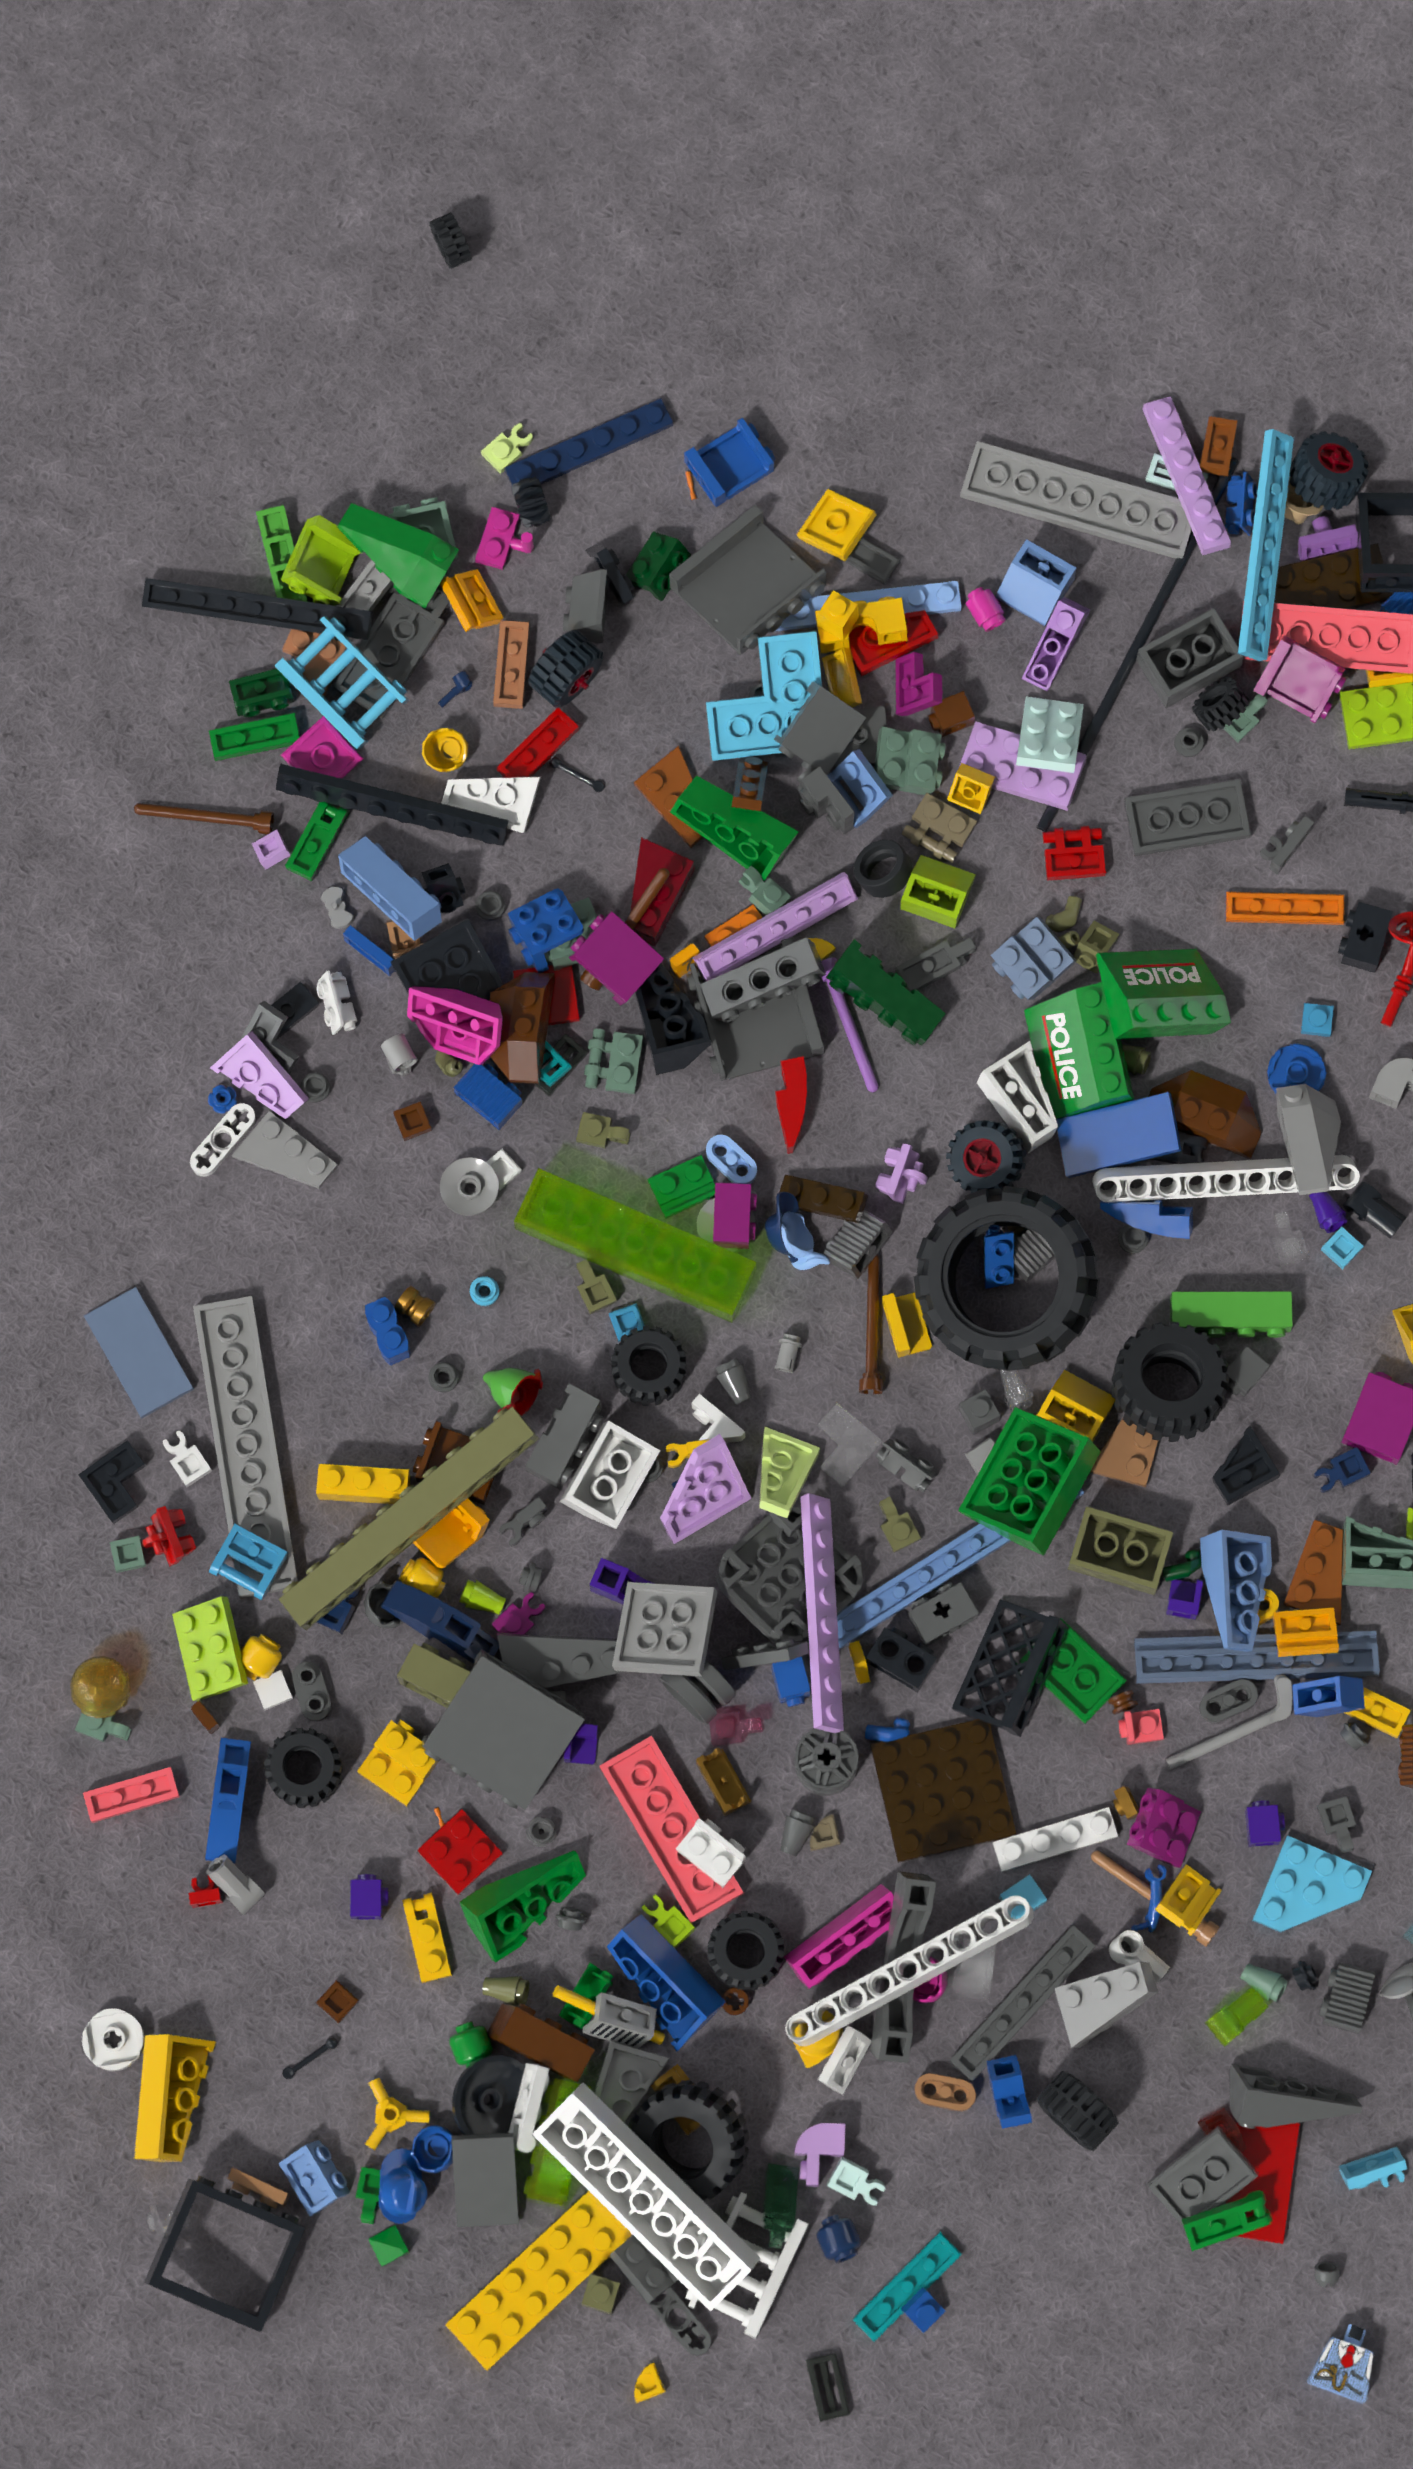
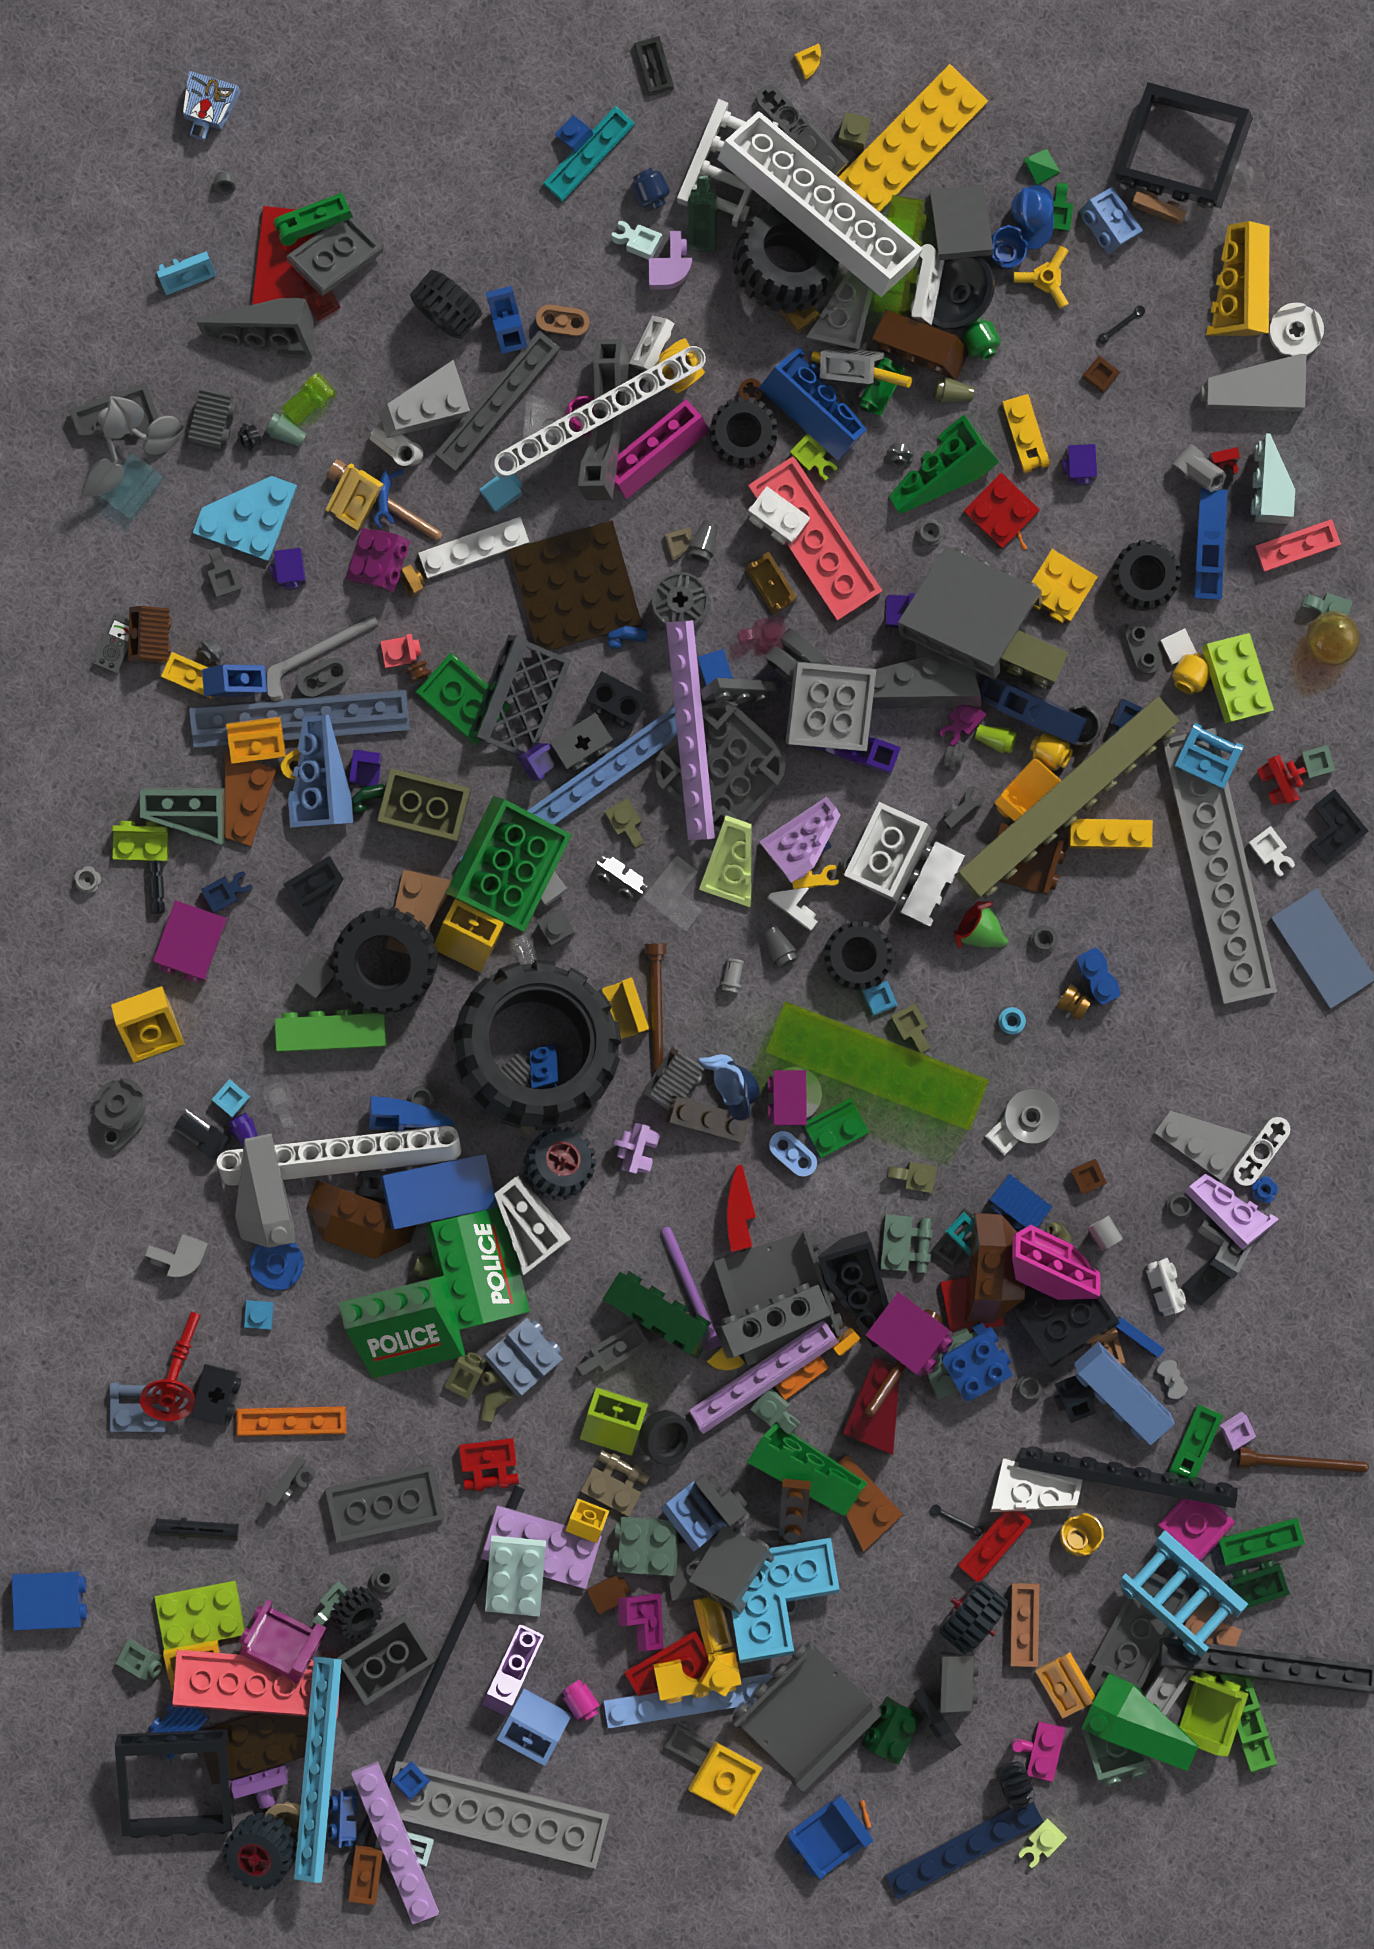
camera: 175 degrees right, 10 degrees up
(153, 1849) = (1274, 487): none -> light aqua slope
(155, 1975) = (1263, 387): none -> light grey slope
(204, 1717) = (1237, 617): reddish brown tile -> none
(462, 684) = (1069, 1605): dark blue hand -> none
(859, 1662) = (655, 696): yellow tile -> none
(993, 1595) = (537, 761): none -> panel
(1168, 535) = (410, 1780): none -> blue tile

